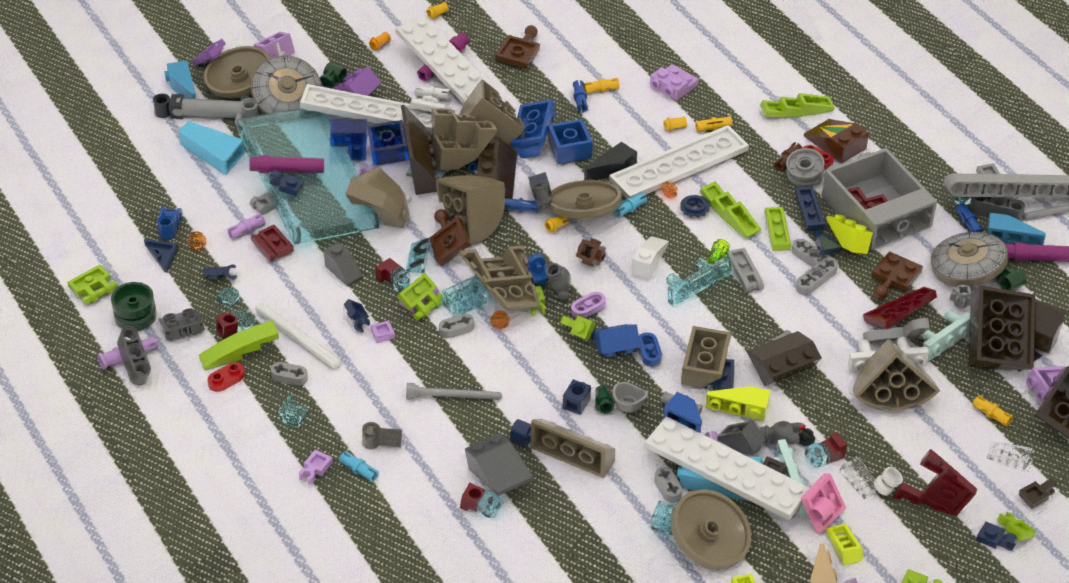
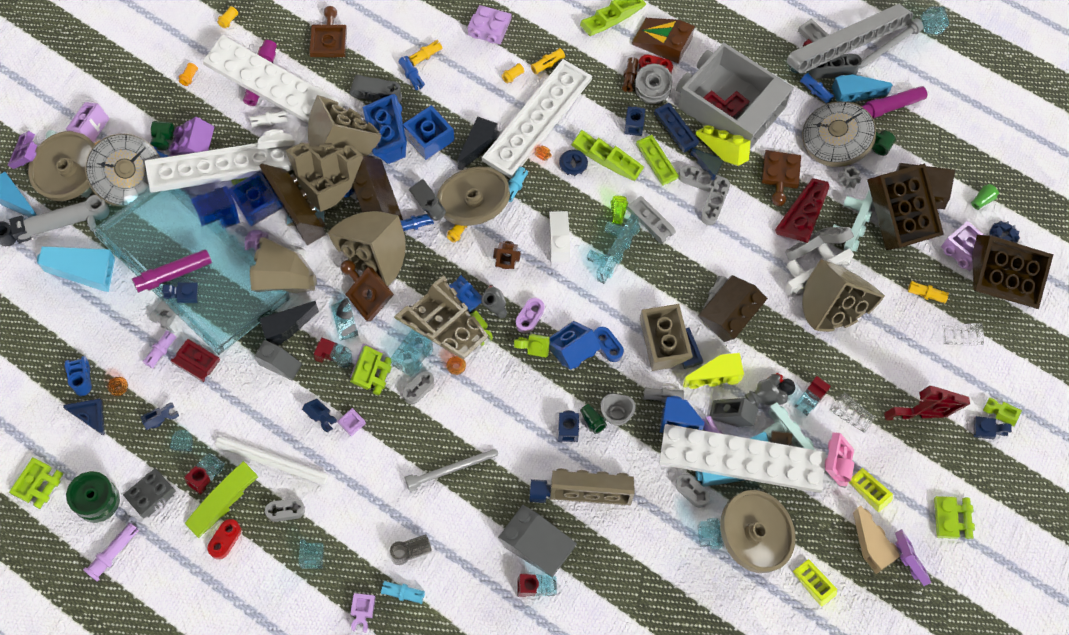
camera: 25 degrees left, 20 degrees up
(132, 363) = (120, 548): dark grey beam -> none
(368, 240) = (285, 324): none -> black slope
(533, 93) = (374, 88): none -> dark grey piece
(771, 191) = (631, 126): none -> dark blue brick
(888, 480) = (880, 409): white wheel -> none
(1037, 494) = (1003, 368): dark brown plate -> none

